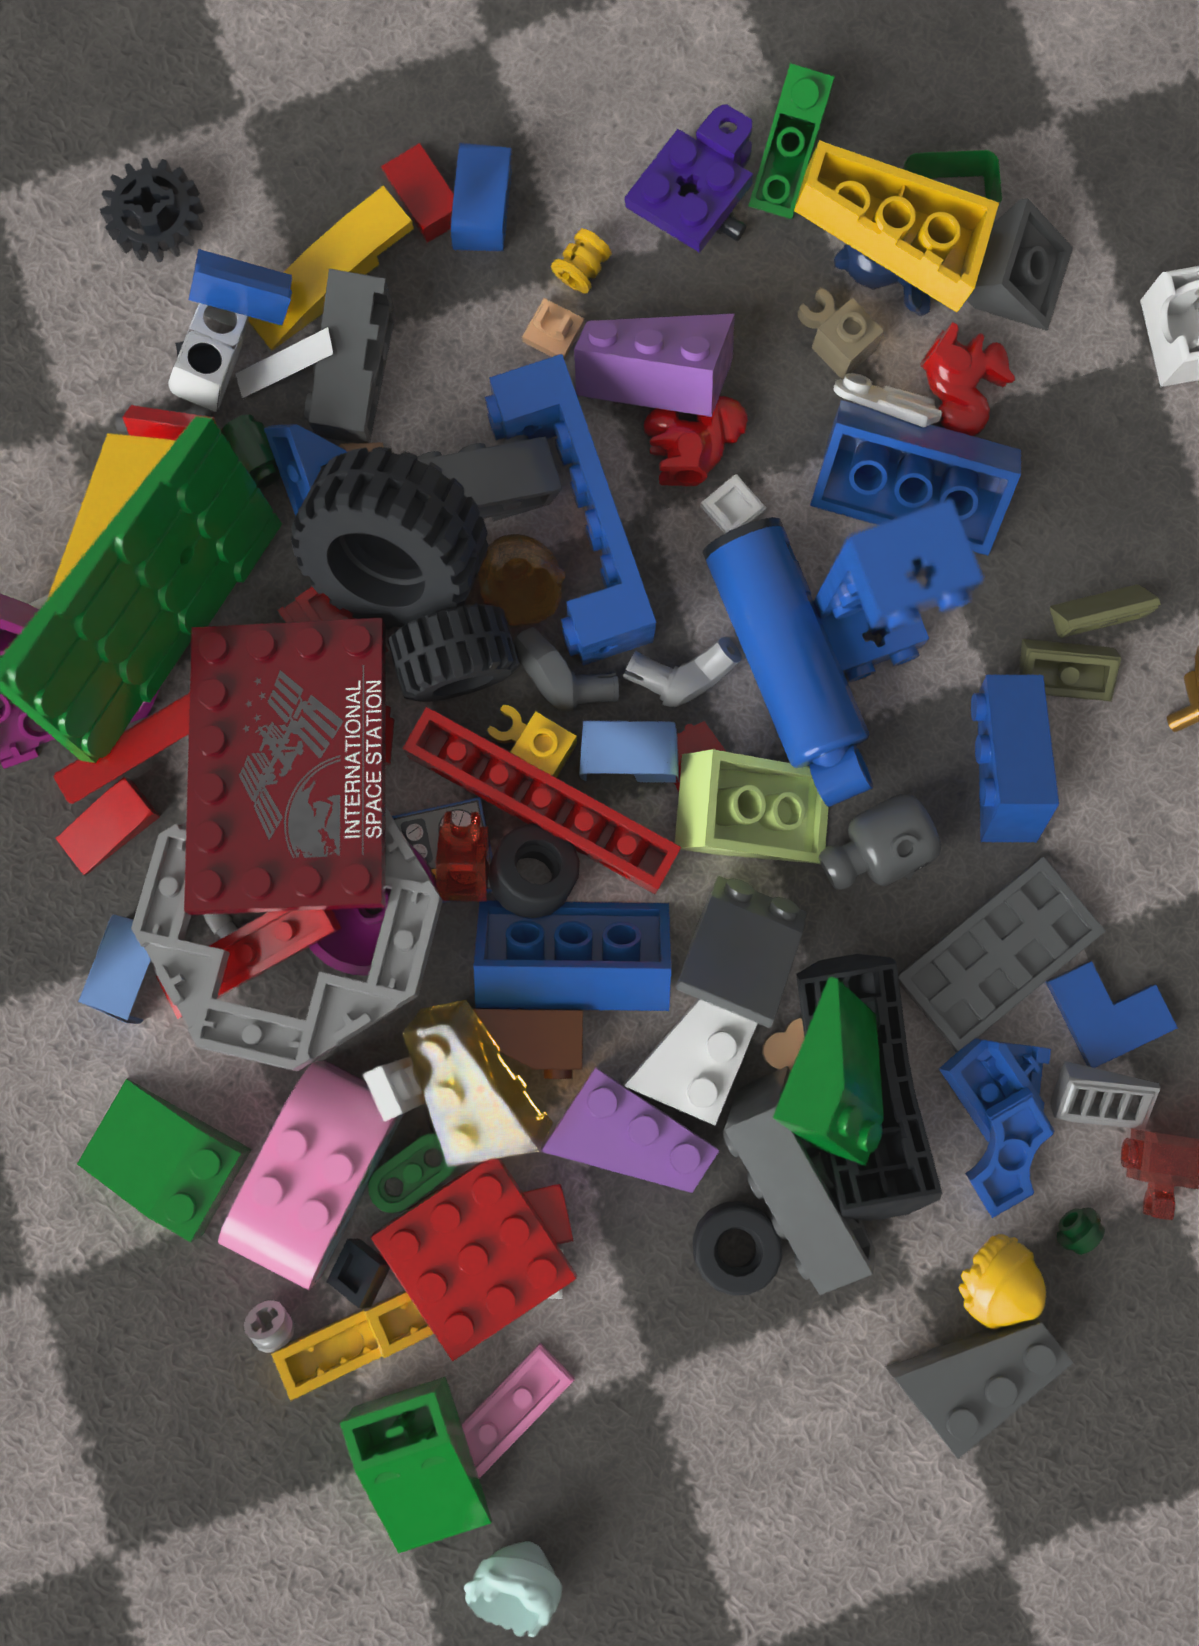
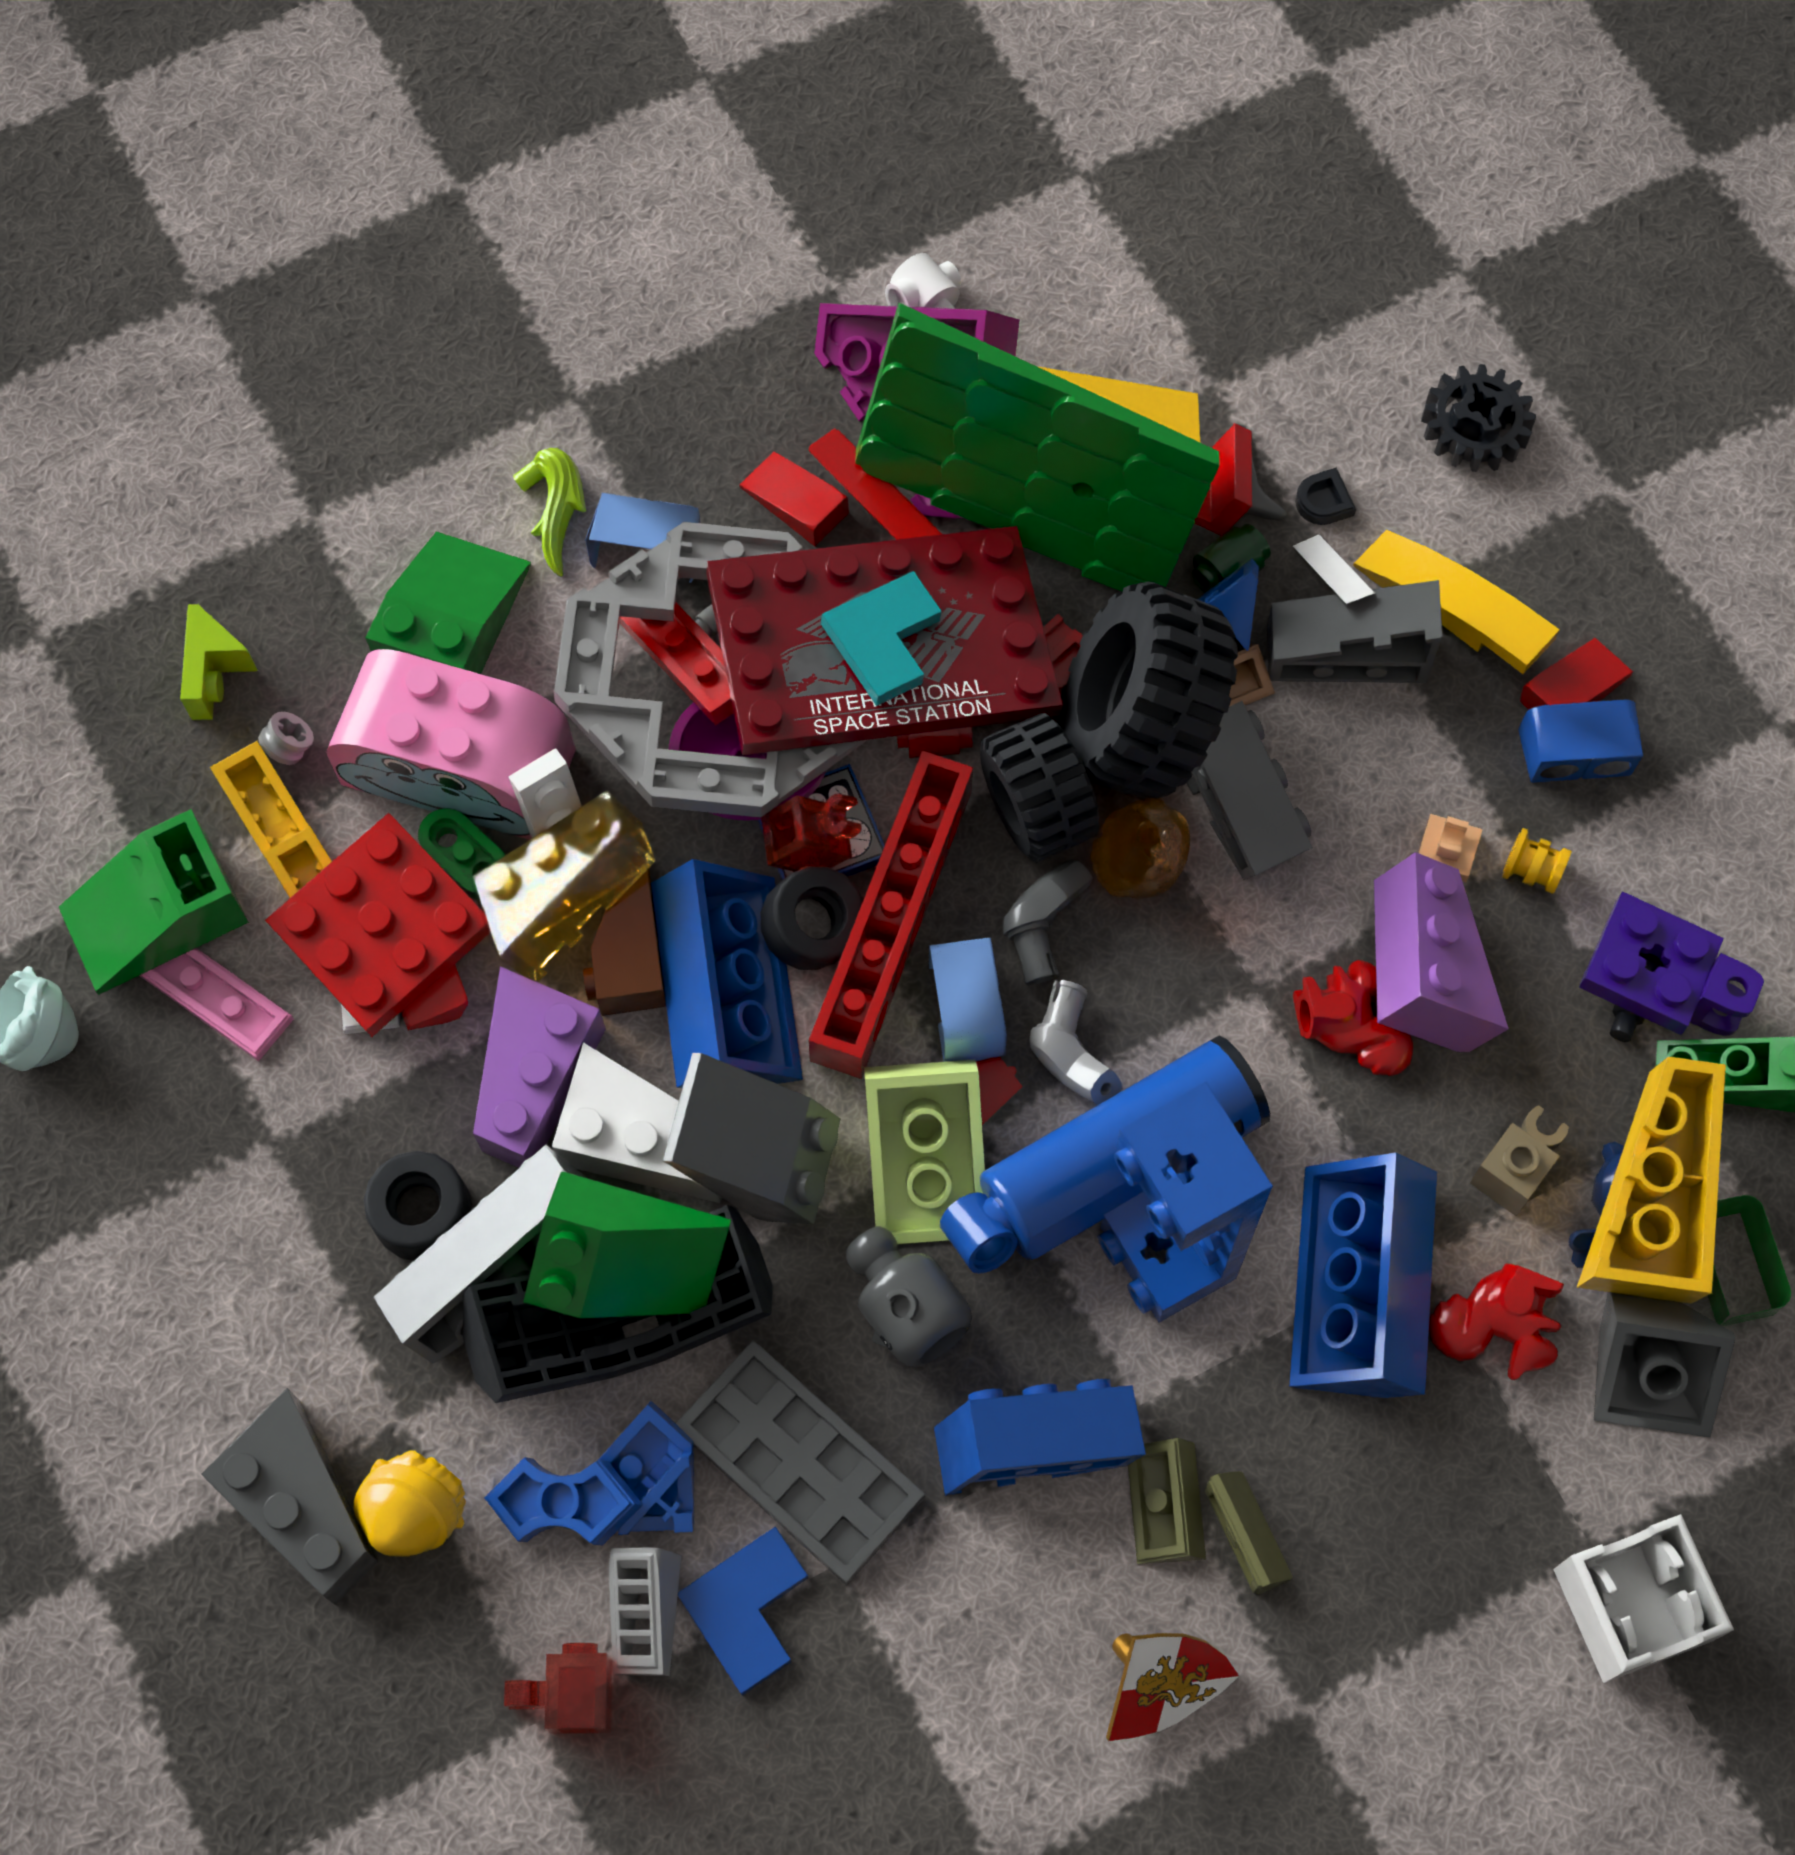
camera: 85 degrees right, 15 degrees down
(68, 1039) = (564, 496): none -> lime piece
(165, 1395) = (207, 653): none -> lime slope
(200, 387) = (1320, 515): white piece -> none
(240, 287) = (1404, 506): blue panel -> none
(288, 774) = (871, 633): none -> teal tile
(358, 1273) = (348, 815): black plate -> none
(538, 742) = (957, 900): yellow brick -> none
(541, 403) = (1348, 847): blue plate -> none
(733, 505) = (1285, 1077): white tile -> none
(888, 400) = (1450, 1238): white piece -> none
(1080, 1230) = (481, 1603): dark green plate -> none

